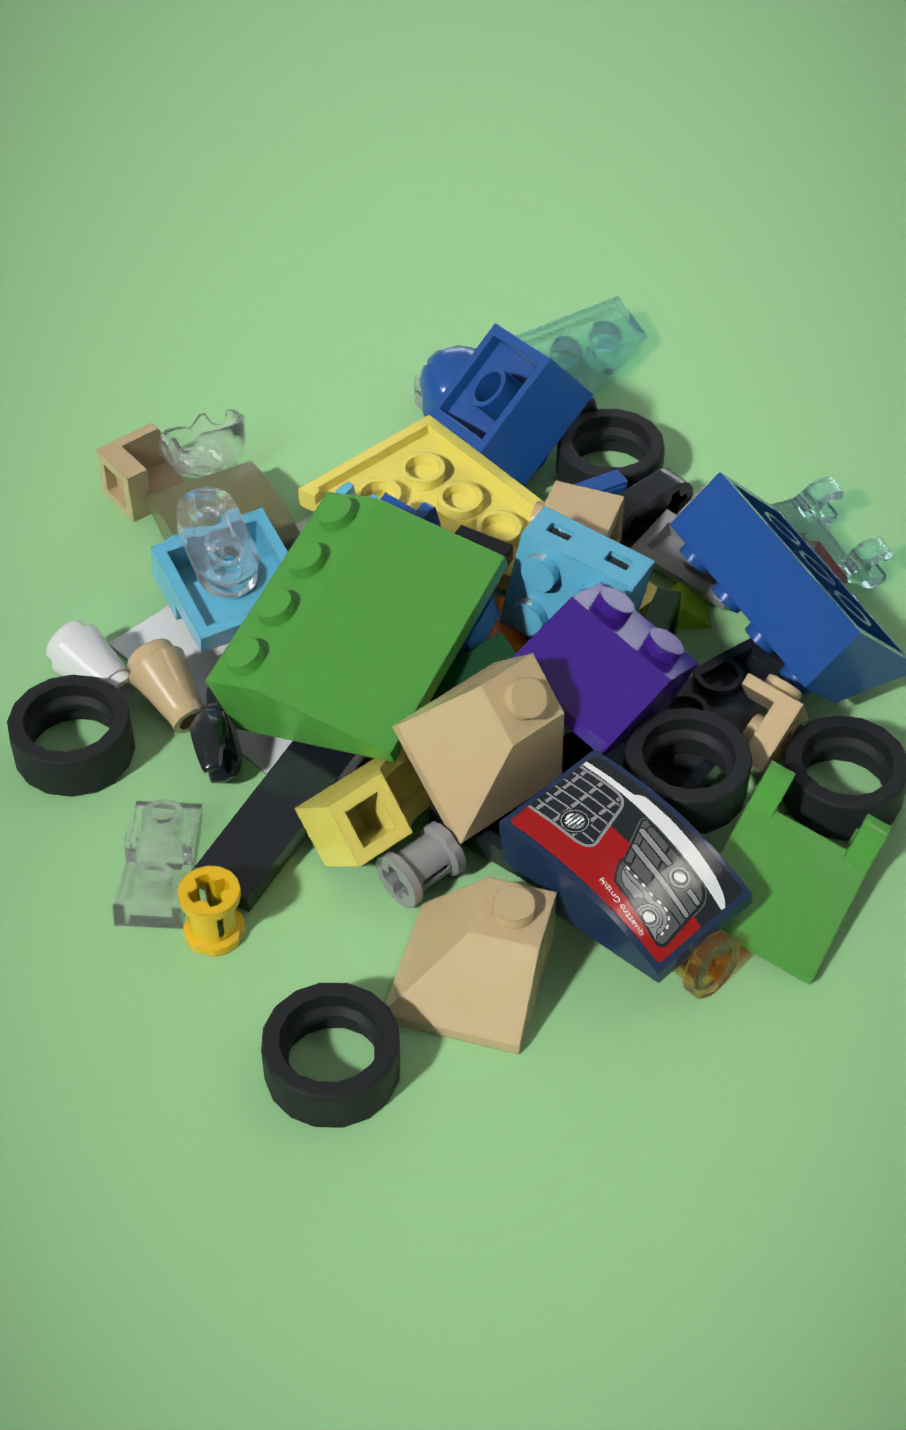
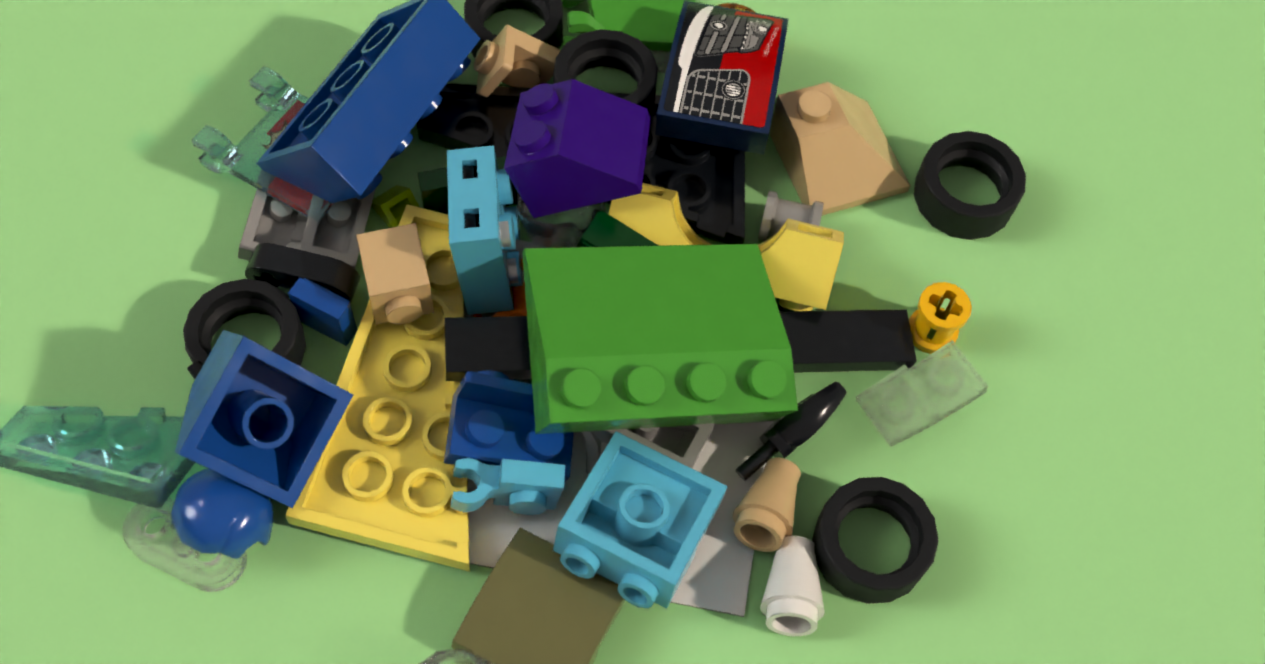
camera: 130 degrees left, 15 degrees up
(215, 536) = (636, 520): clear plate -> none
(486, 744) = (700, 175): tan slope -> none

